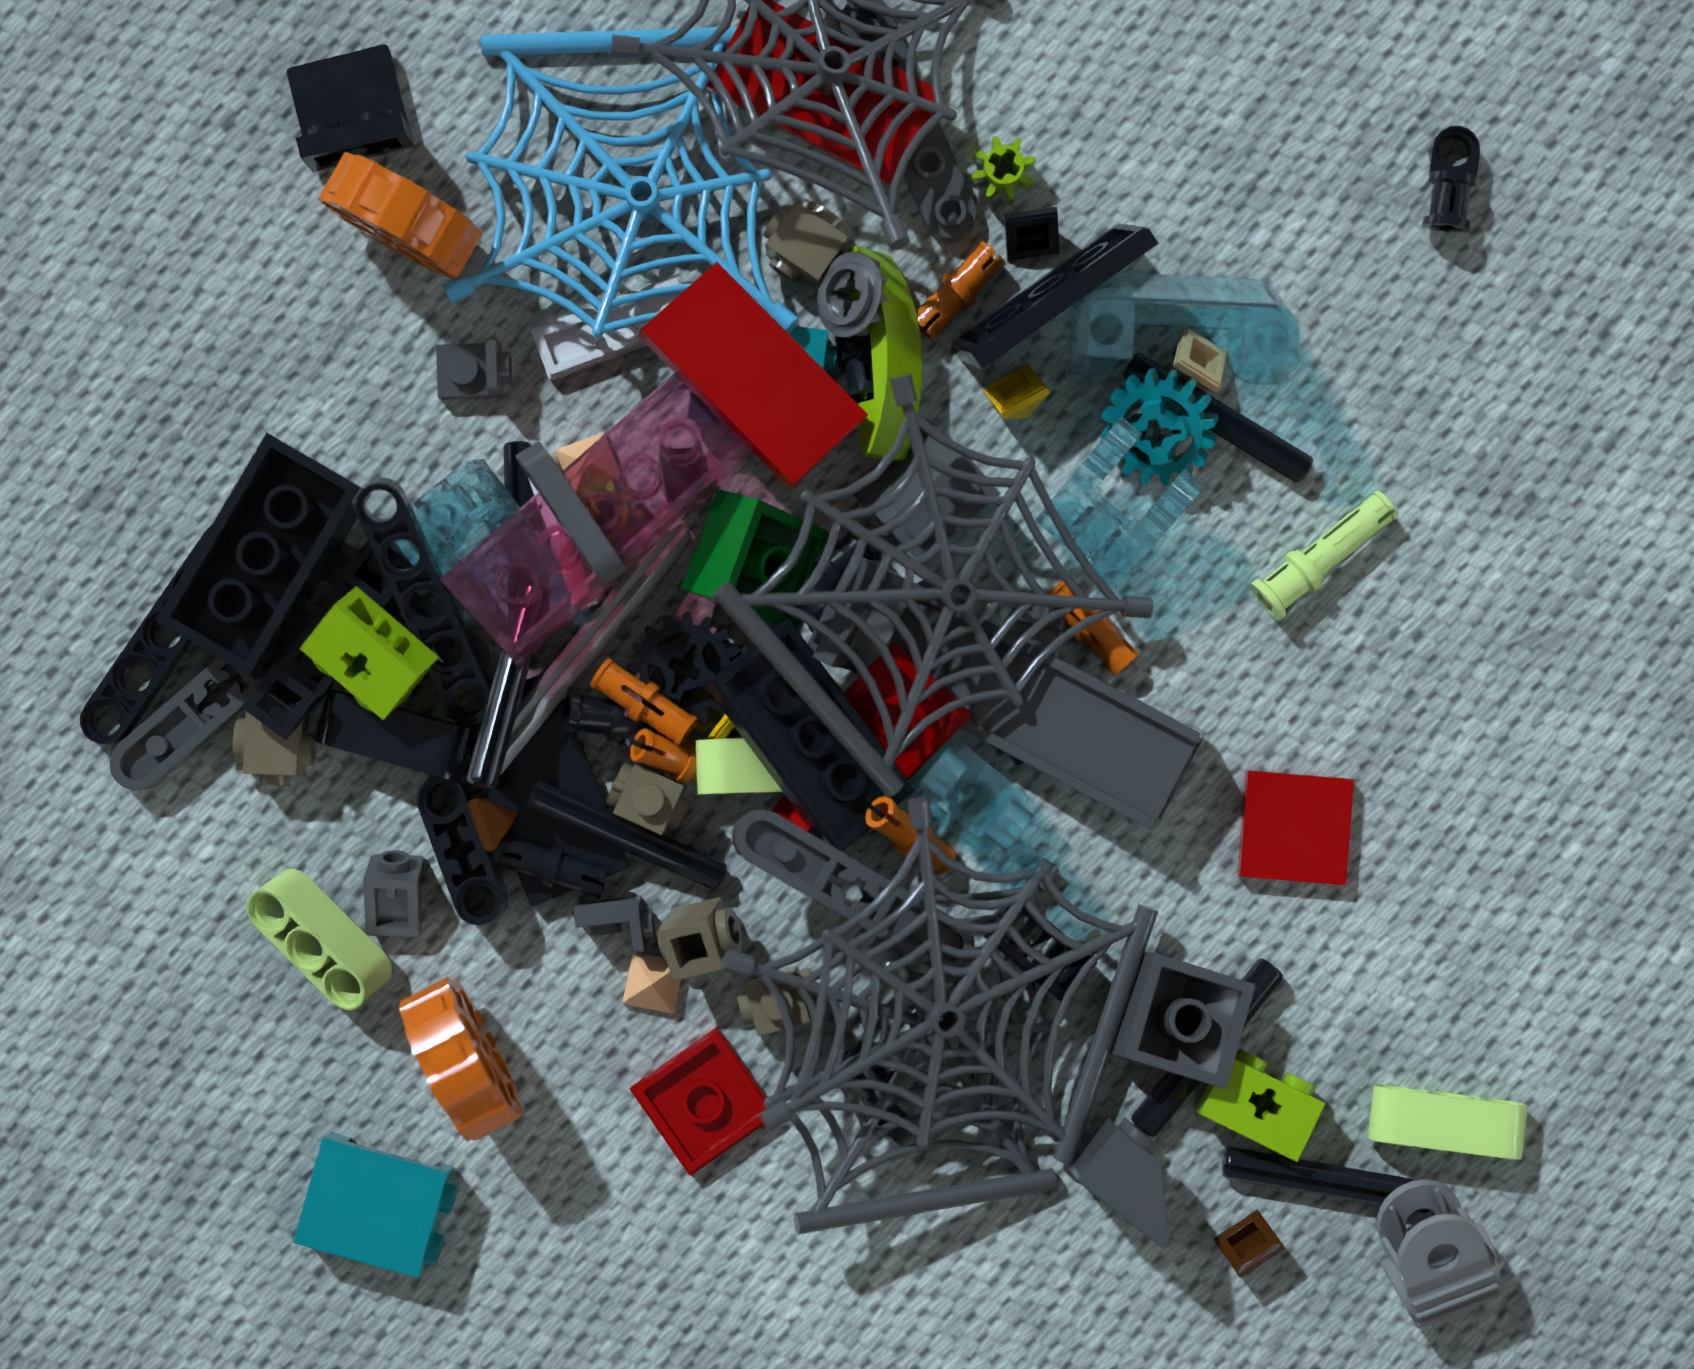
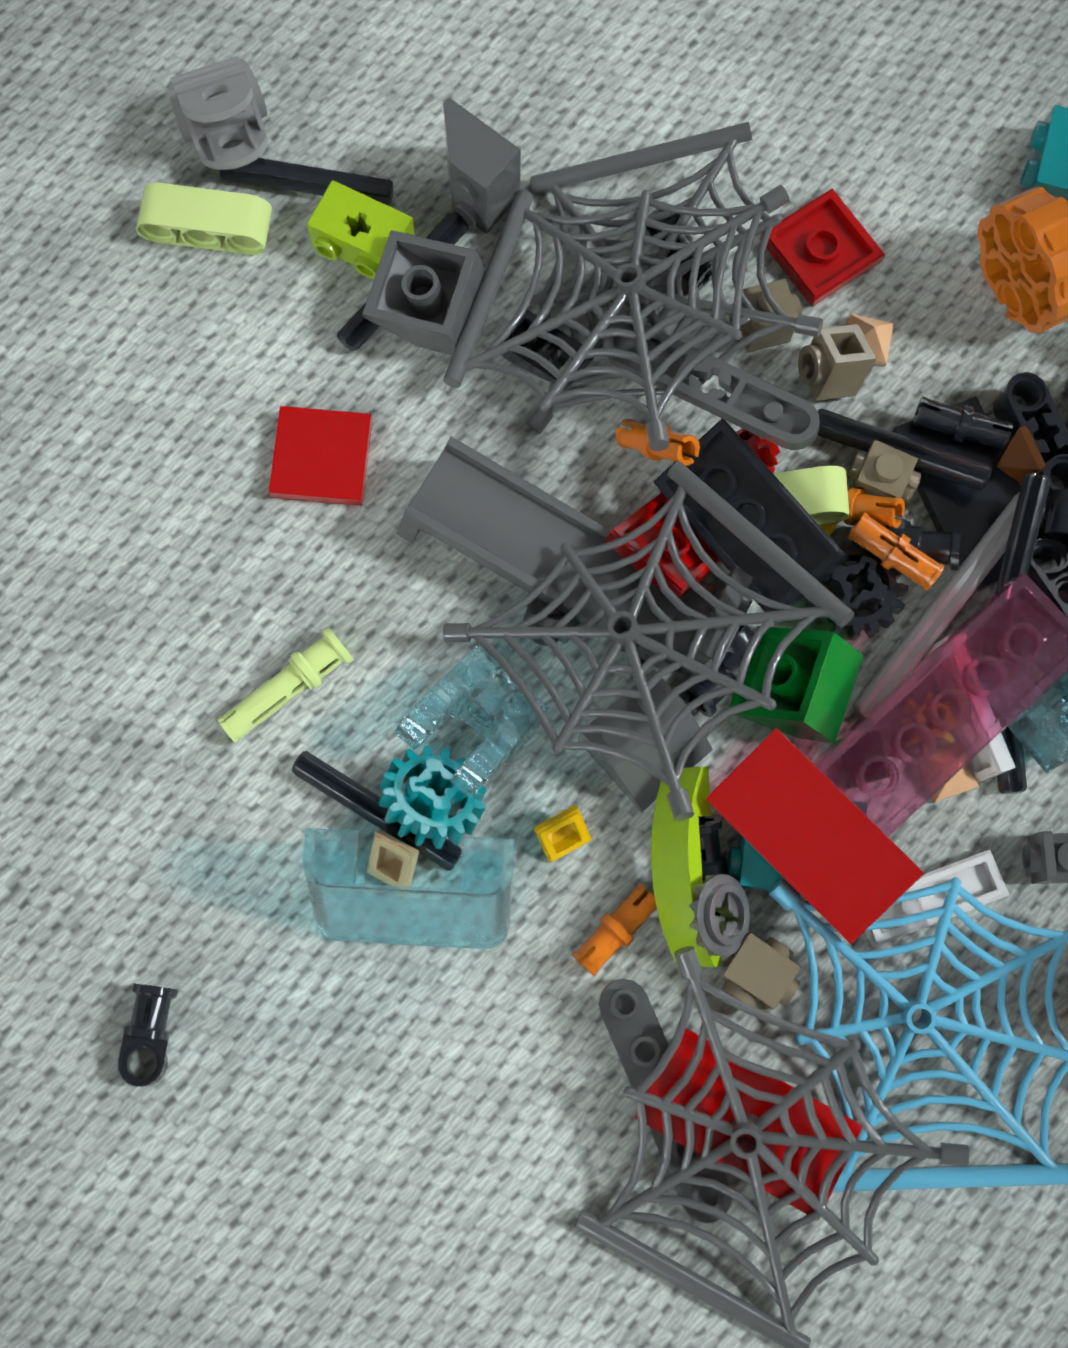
camera: 175 degrees right, 10 degrees down
(571, 513) = (982, 699): dark grey beam -> none
(606, 918) = (904, 388): dark grey bracket -> none
(995, 158) = (588, 1039): lime gear -> none
(1007, 809) = (583, 450): clear light blue brick -> none
(1031, 233) = (547, 984): black slope -> none
(1053, 294) = (530, 917): black tile -> none
(1099, 636) = (479, 609): orange pin -> none
(1249, 1243) = (373, 130): reddish brown slope -> none

